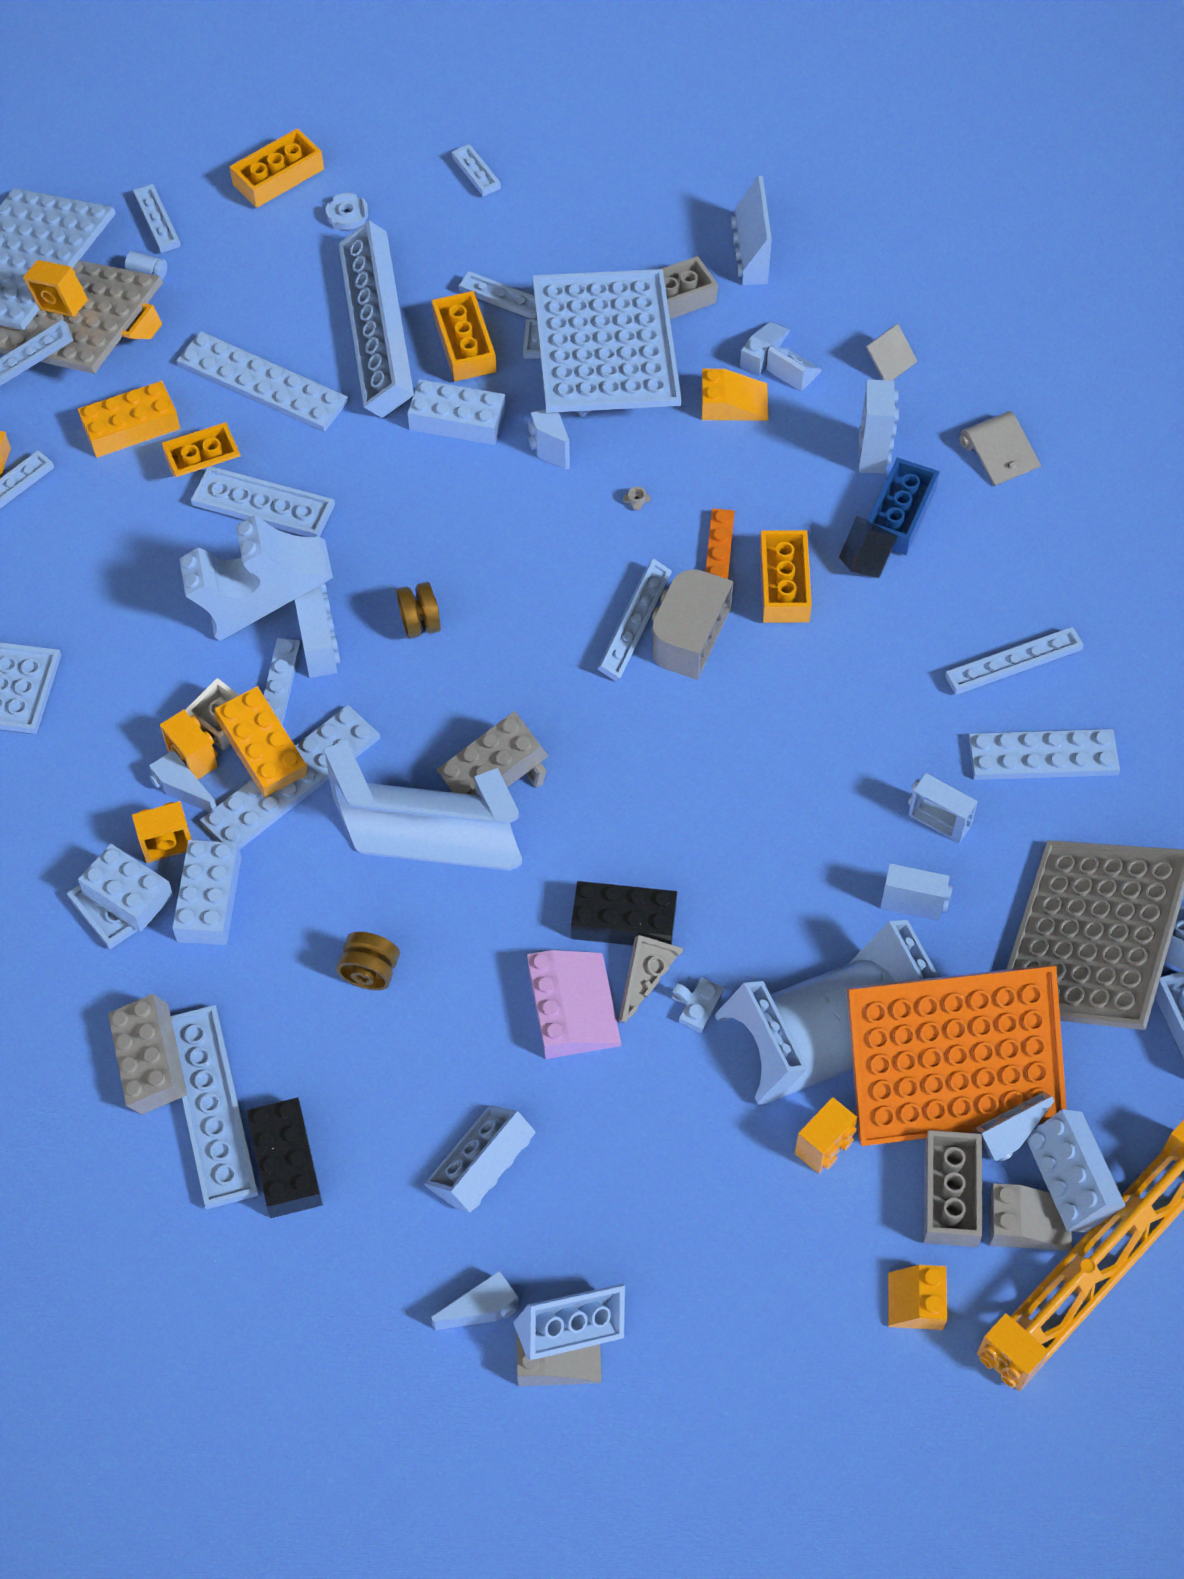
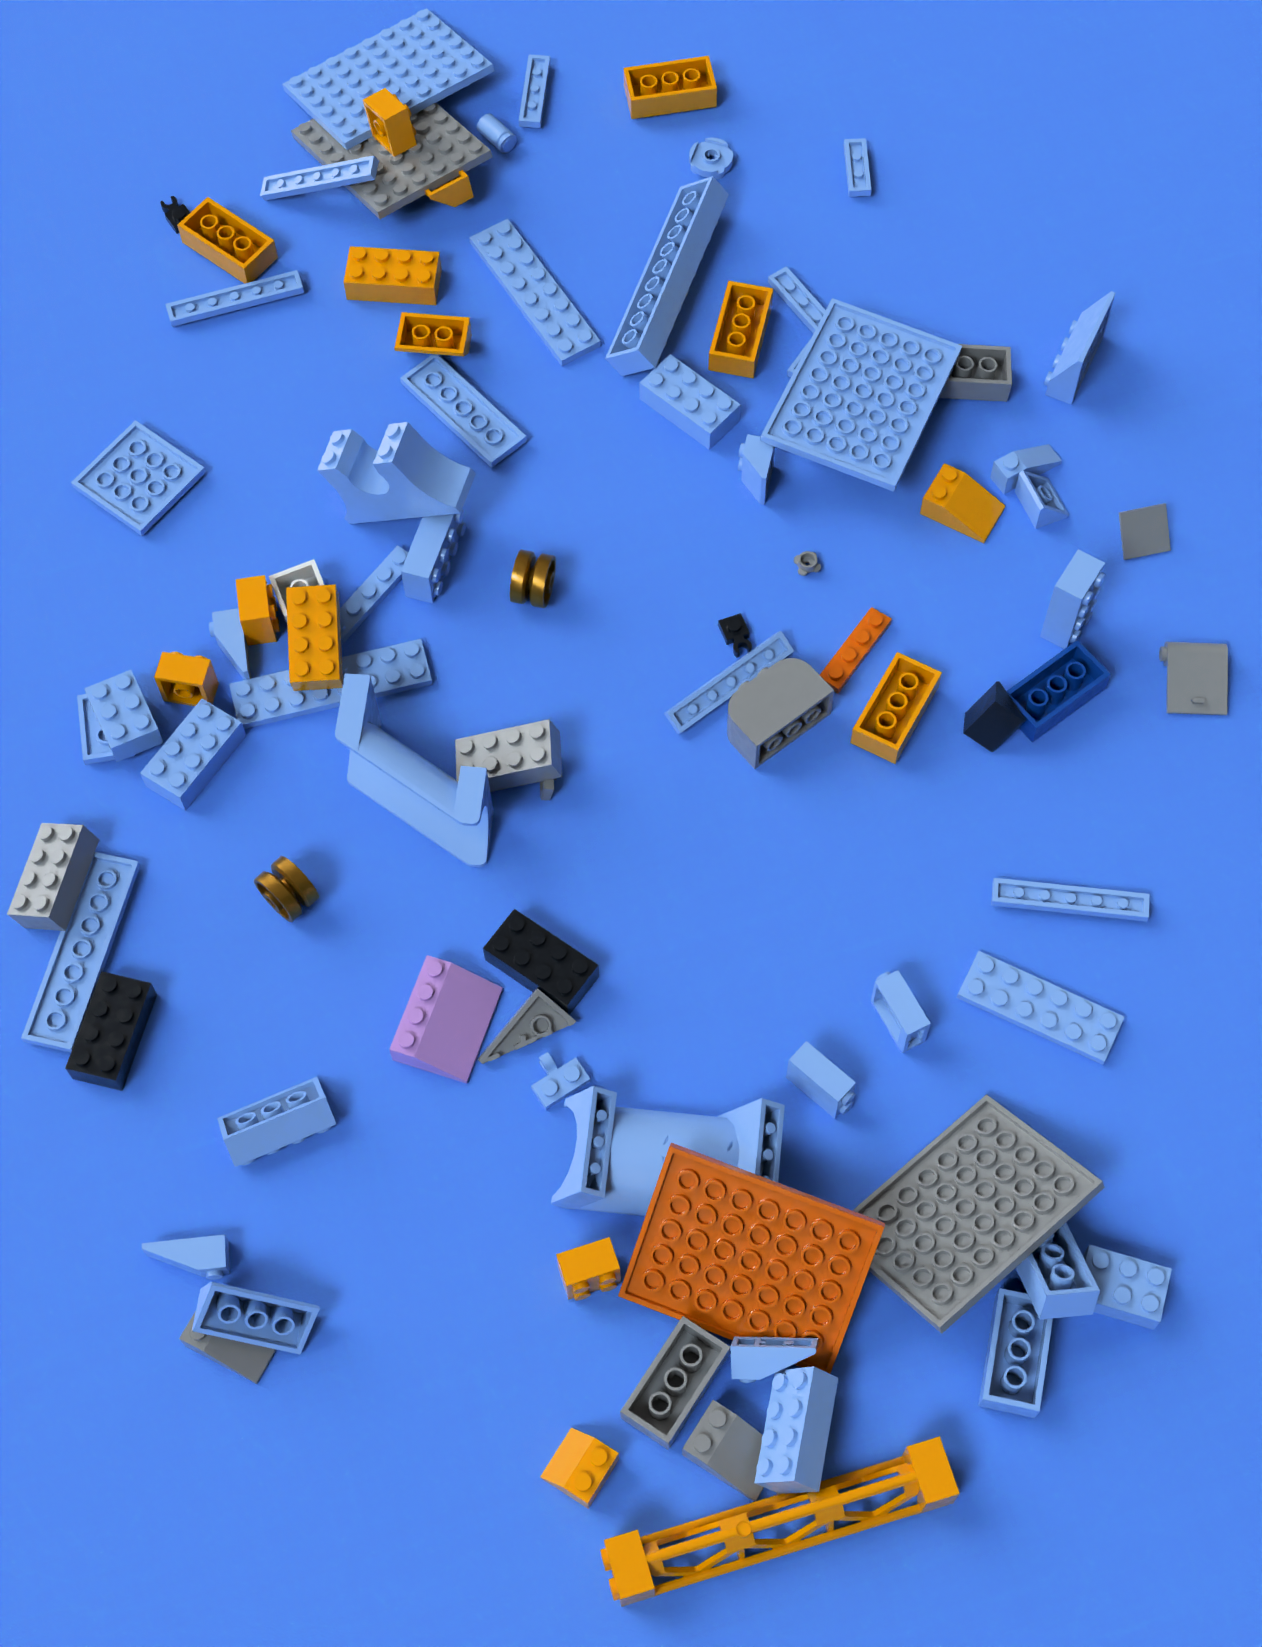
camera: 30 degrees right, 5 degrees up
(613, 578) = (736, 632): none -> black plate

